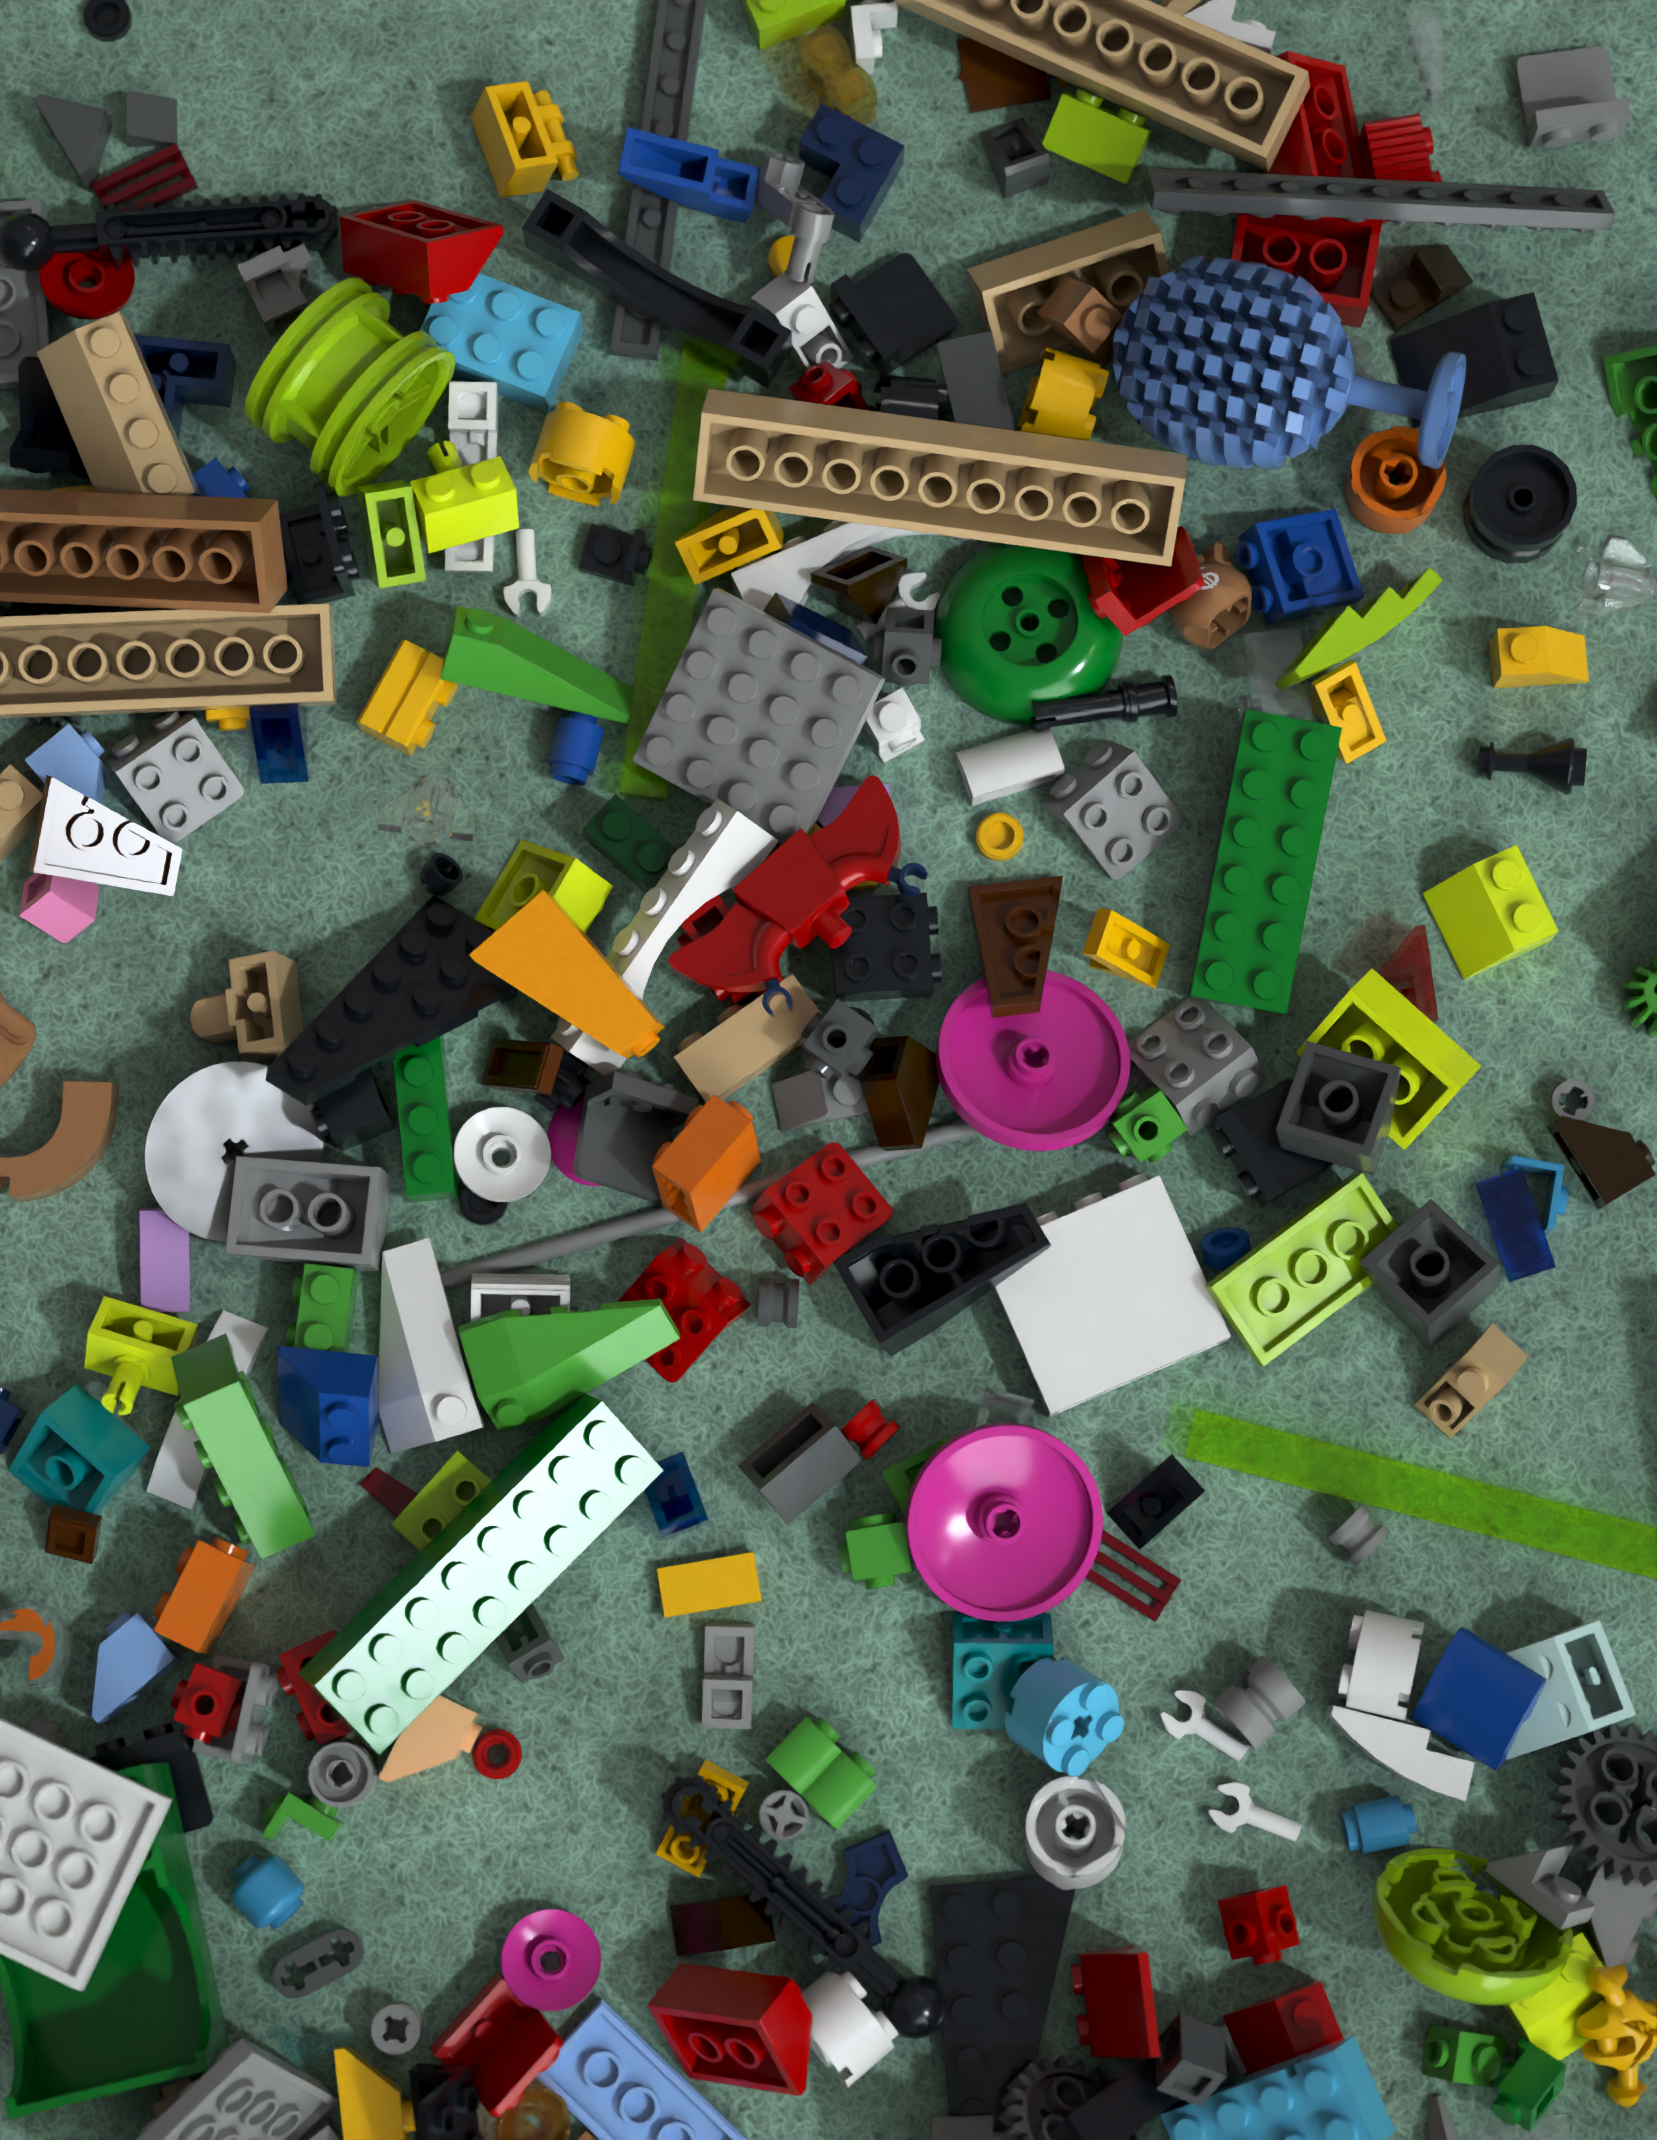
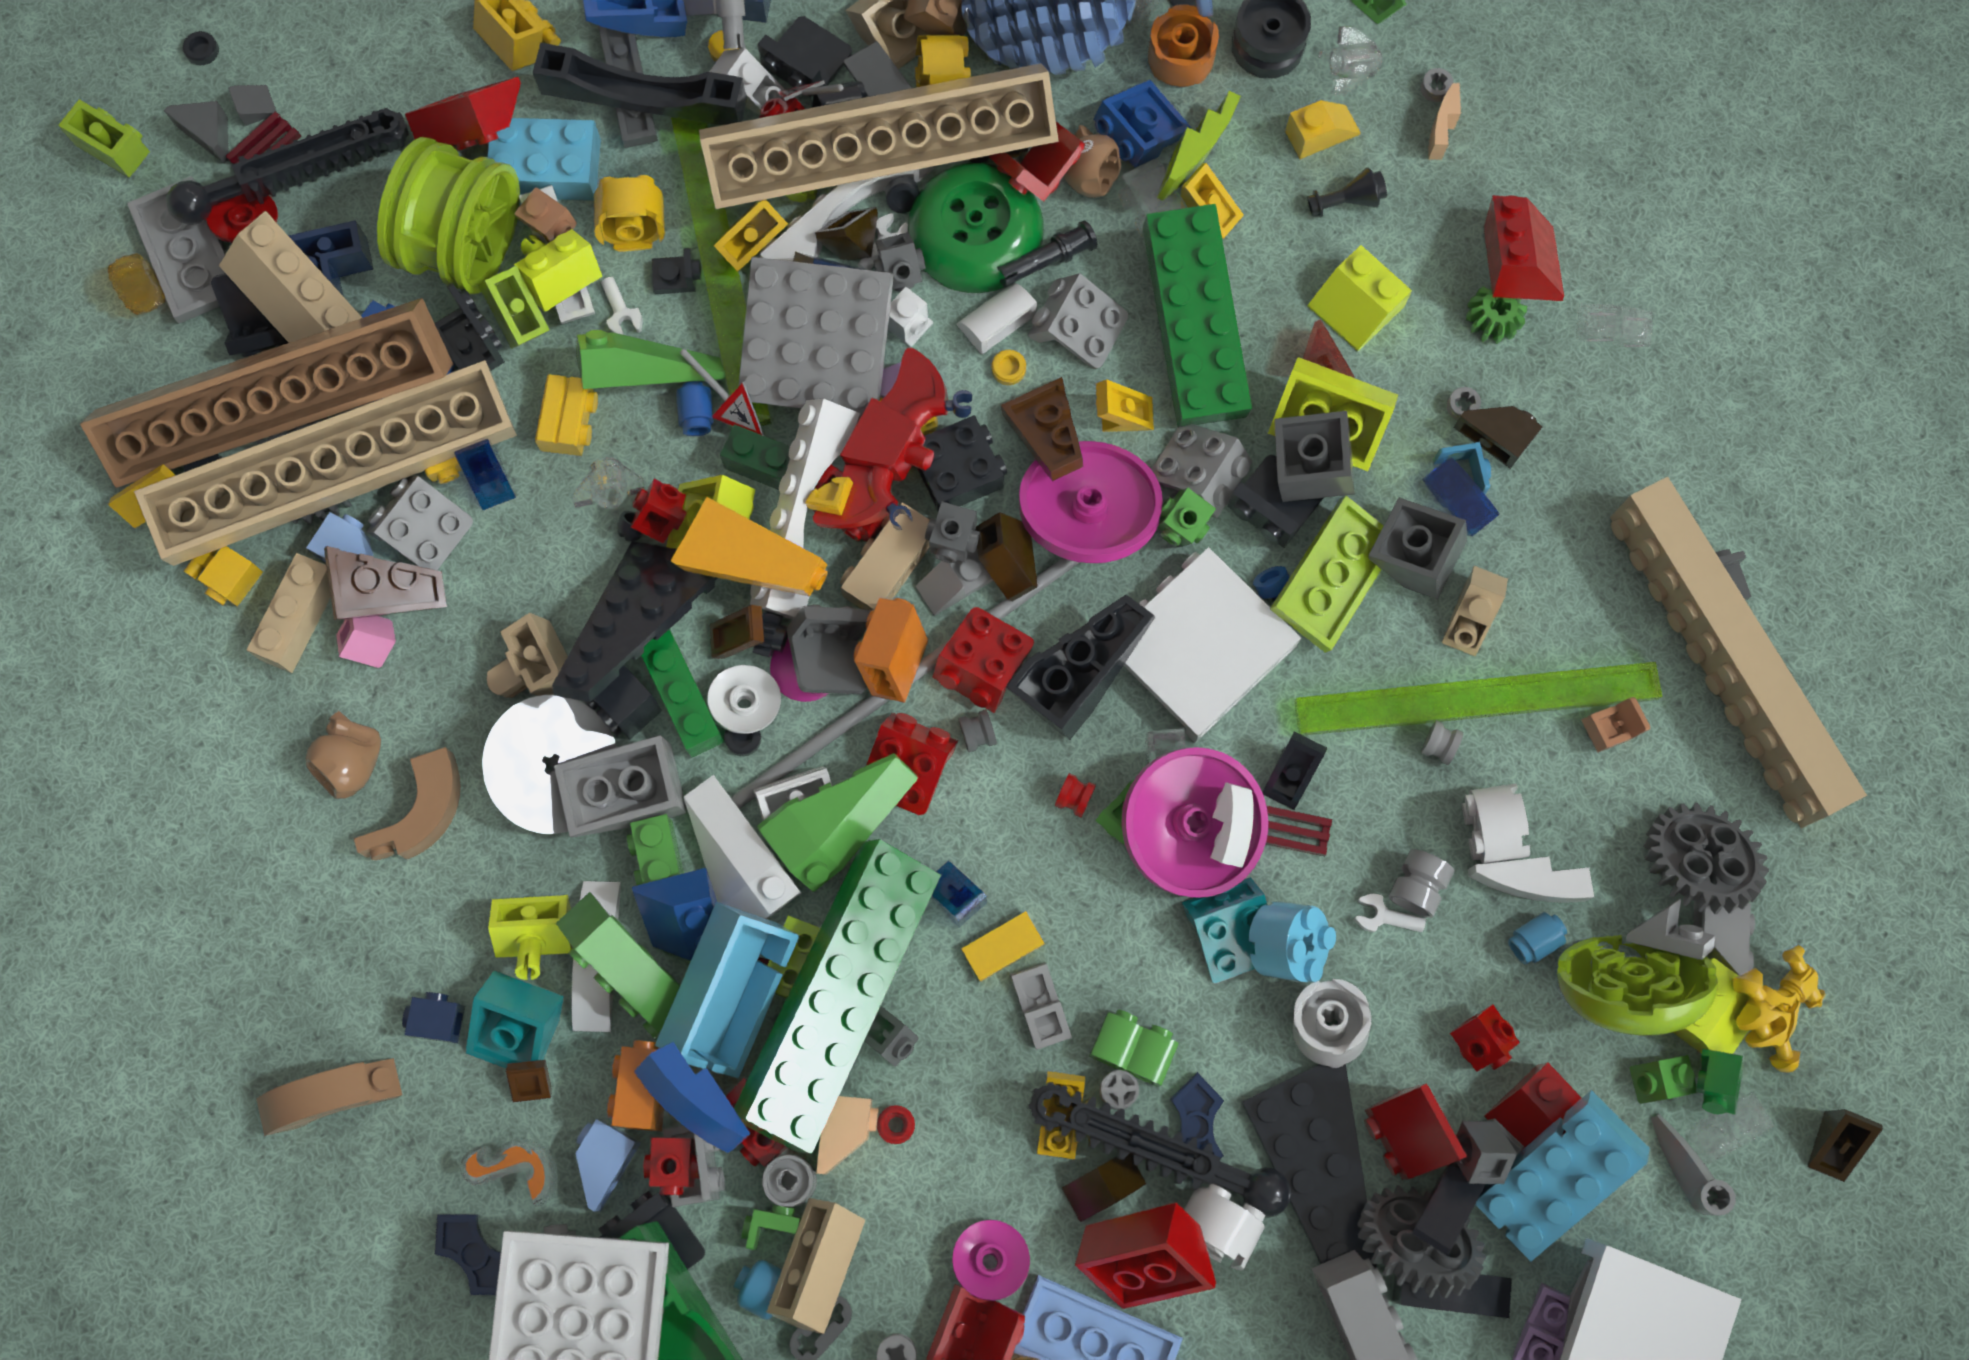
camera: 20 degrees left, 5 degrees down
(163, 1263) = (528, 861): lavender slope -> none
(260, 1636) = (691, 1098): none -> blue slope
(278, 285) = (371, 170): light grey brick -> none
(338, 1887) = (816, 1265): none -> tan brick
(348, 1518) = (727, 990): none -> medium azure piece
(474, 424) = (545, 215): none -> nougat bracket
(480, 872) = (658, 510): none -> red brick
(628, 771) = (737, 406): none -> piece
(701, 939) = (831, 496): none -> yellow tile
(818, 1462) = (1047, 829): dark grey brick -> none
(853, 367) = (809, 89): none -> light grey piece
(875, 1550) = (1112, 877): bright green brick -> none
(946, 553) = (901, 194): none -> black tile
(1056, 1533) = (1235, 809): none -> white slope
(1252, 1814) = (1446, 965): white bar -> none
(1478, 1698) = (1572, 822): blue slope -> none
(1580, 1688) = (1615, 802): light aqua slope -> none
(1589, 1594) = (1616, 724): none -> nougat bracket

